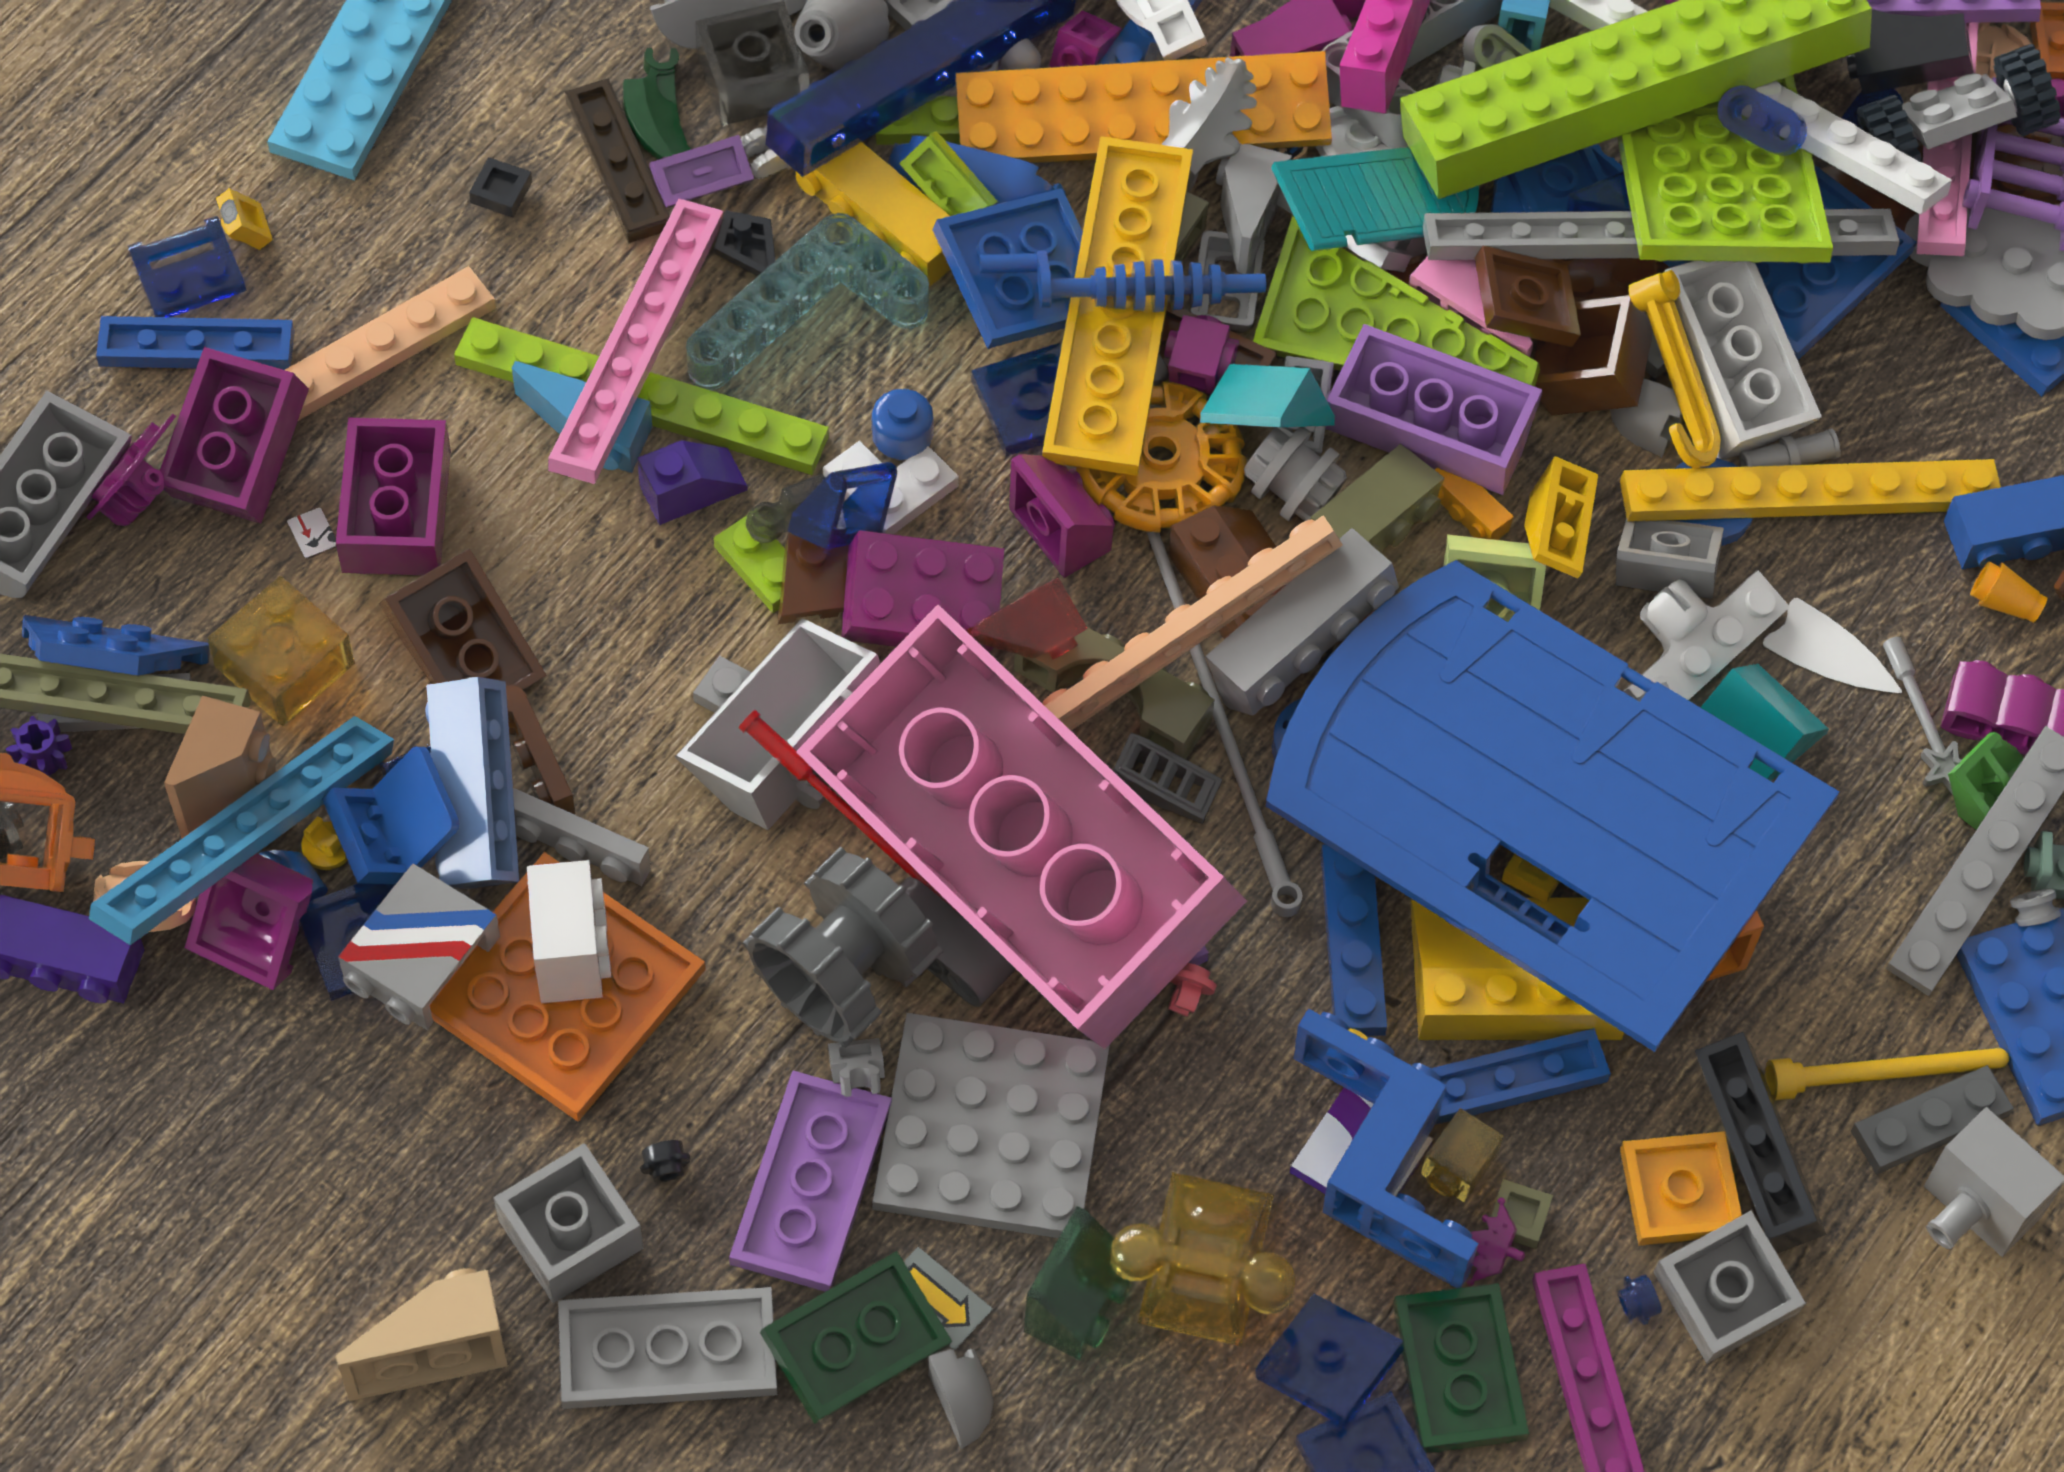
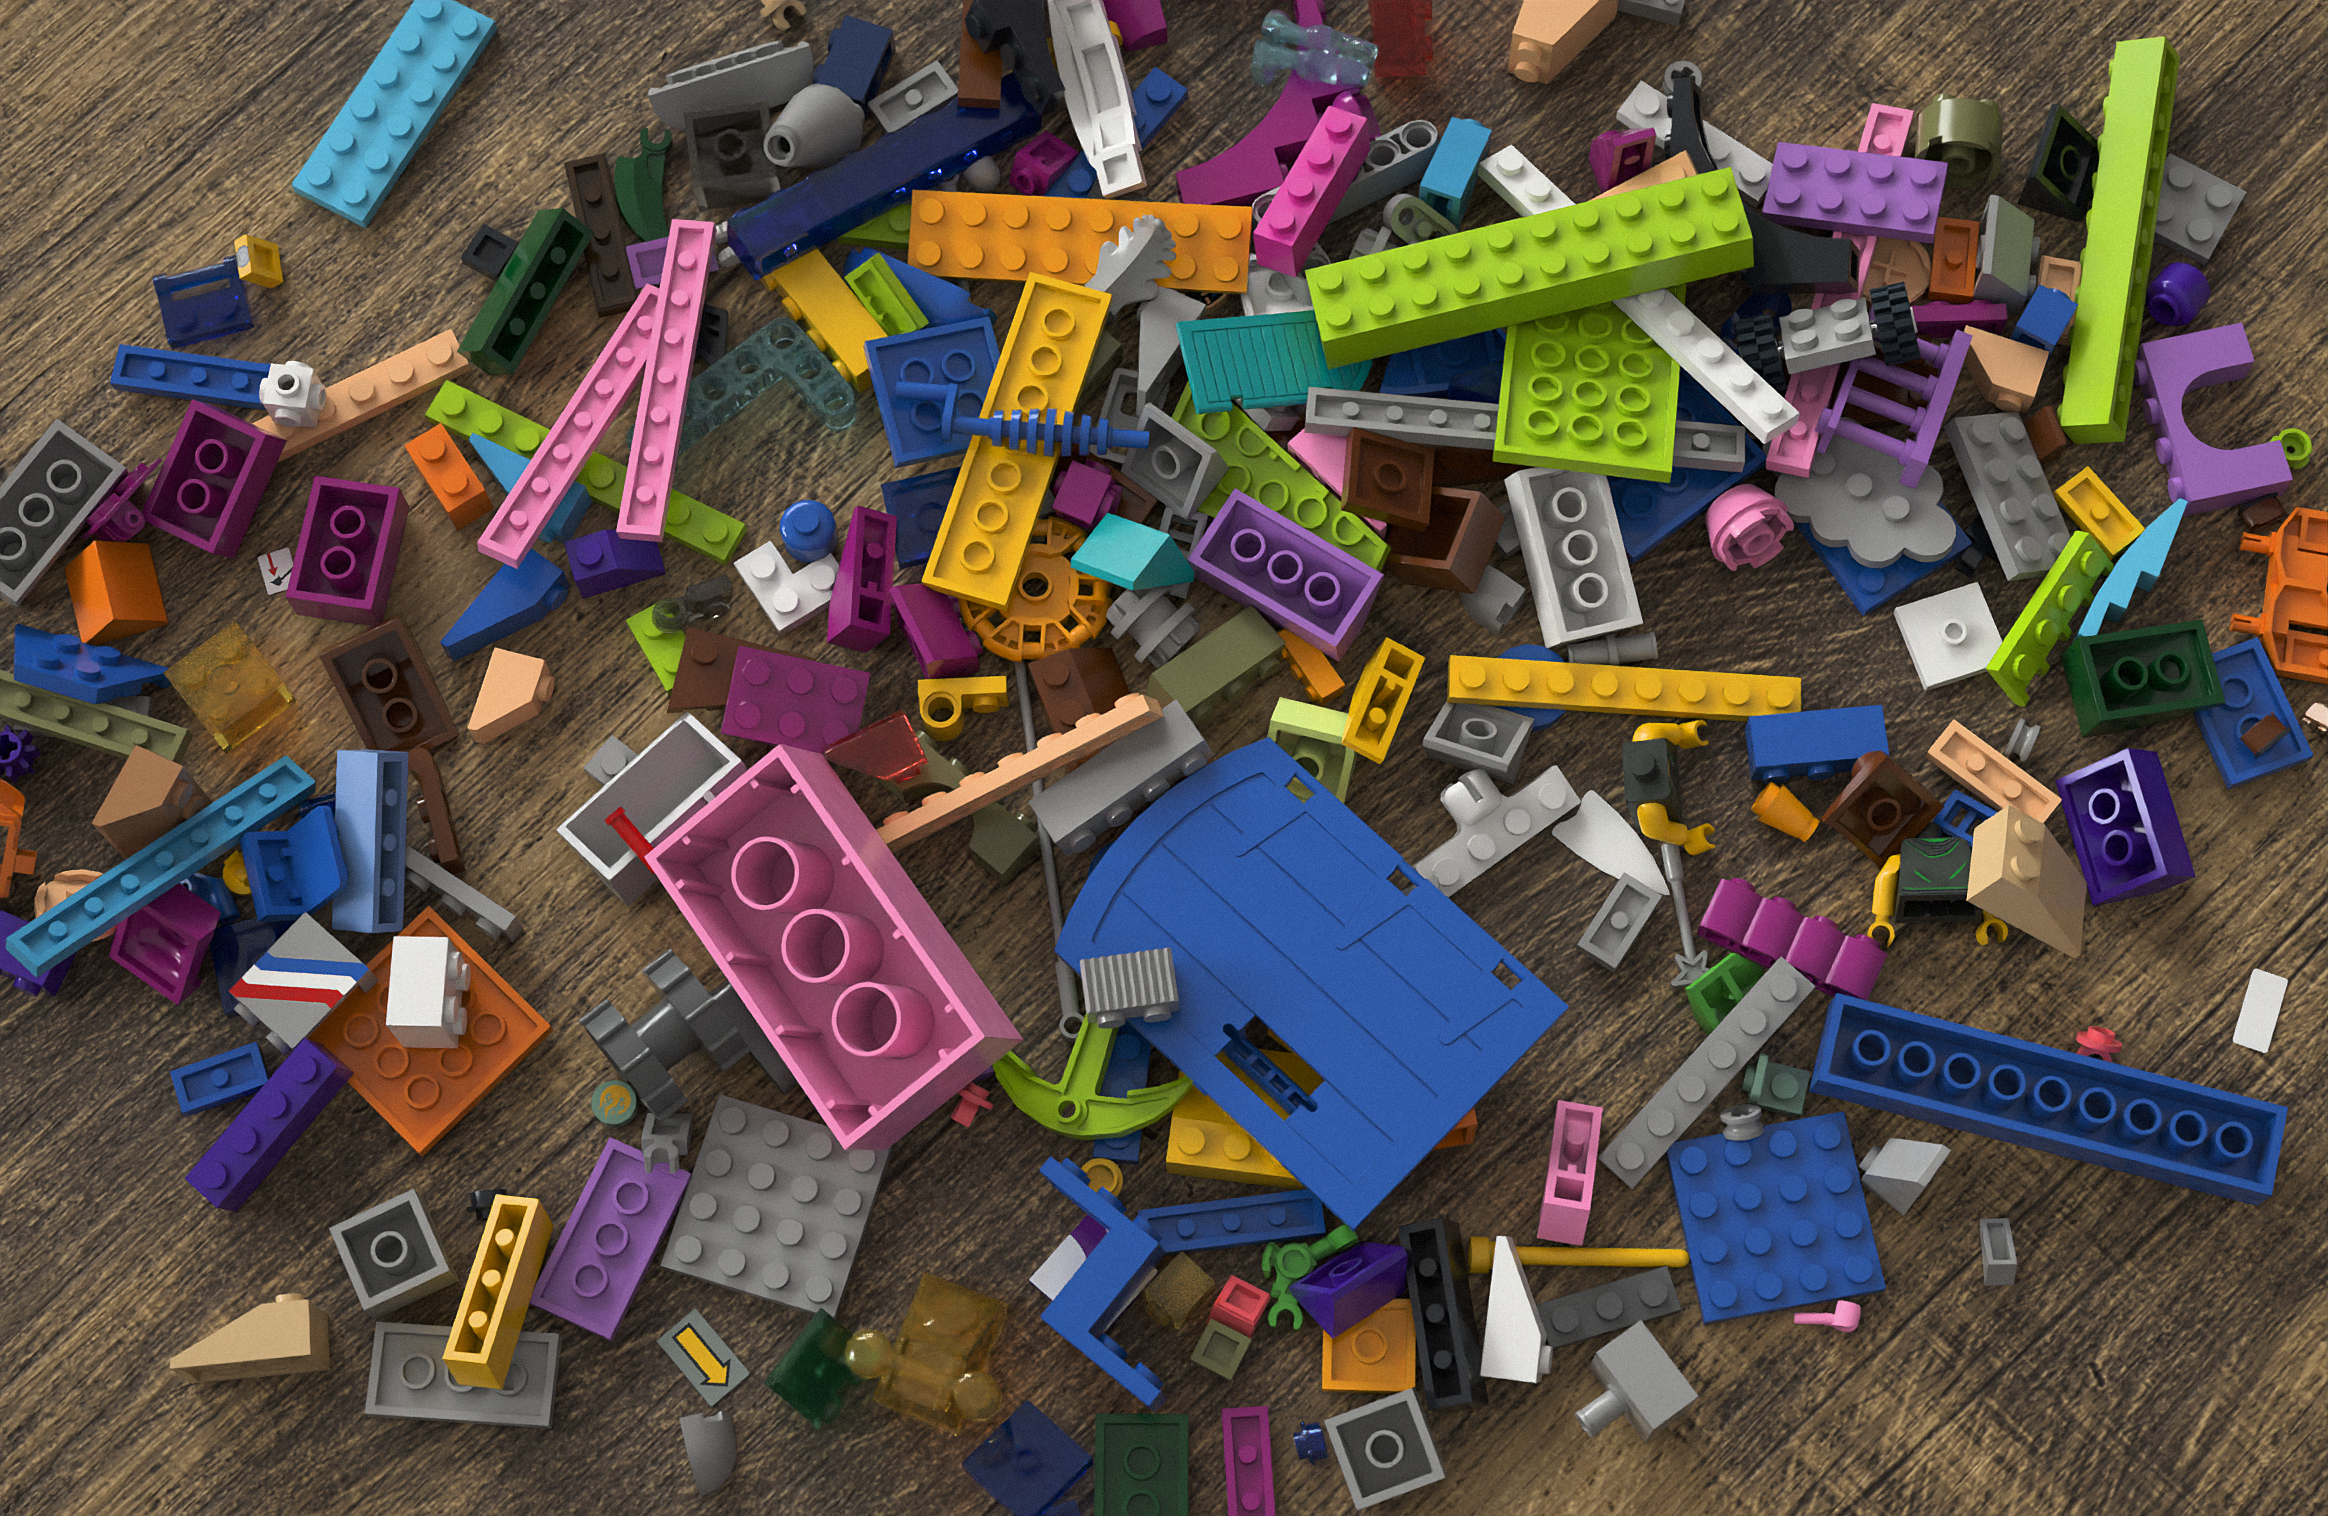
camera: 15 degrees right, 10 degrees up
(130, 569) = (115, 591): none -> orange slope
(310, 340) = (293, 394): none -> white brick
(334, 1064) = (220, 1079): none -> blue plate
(402, 1100) = (269, 1125): none -> dark purple brick
(493, 411) = (449, 476): none -> orange brick
(548, 218) = (525, 291): none -> dark green brick
(582, 533) = (508, 605): none -> blue slope
(599, 624) = (510, 694): none -> light nougat slope
(699, 1244) = (498, 1292): none -> yellow brick
(724, 285) = (666, 381): none -> bright pink plate
(788, 1039) = (614, 1104): none -> sand green tile
(833, 522) = (740, 614): clear blue tile -> none
(855, 1337) = (623, 1389): dark green plate -> none
(974, 469) = (861, 594): none -> magenta slope
(1102, 570) = (955, 694): none -> yellow plate
(1157, 757) = (963, 868): dark grey slope -> none
(1296, 311) = (1176, 466): none -> light grey slope
(1311, 950) = (1081, 1086): none -> lime piece
(1361, 822) = (1129, 987): none -> light grey brick
(1494, 1244) = (1190, 1377): magenta piece -> none
(1529, 1165) = (1240, 1306): none -> coral slope
(1581, 1118) = (1294, 1263): none -> bright green piece
(1656, 1121) = (1352, 1285): none -> dark purple slope
(1657, 298) = (1505, 495): yellow piece -> none
(1764, 122) = (1639, 333): clear blue plate -> none
(1766, 713) = (1530, 909): teal slope -> none
(1840, 1144) = (1514, 1330): none -> white slope
(1857, 722) = (1619, 922): none -> light grey plate
(1863, 984) = (1570, 1173): none -> bright pink slope
(1869, 580) = (1654, 783): none -> torso
(1907, 313) = (1747, 526): none -> bright pink cone

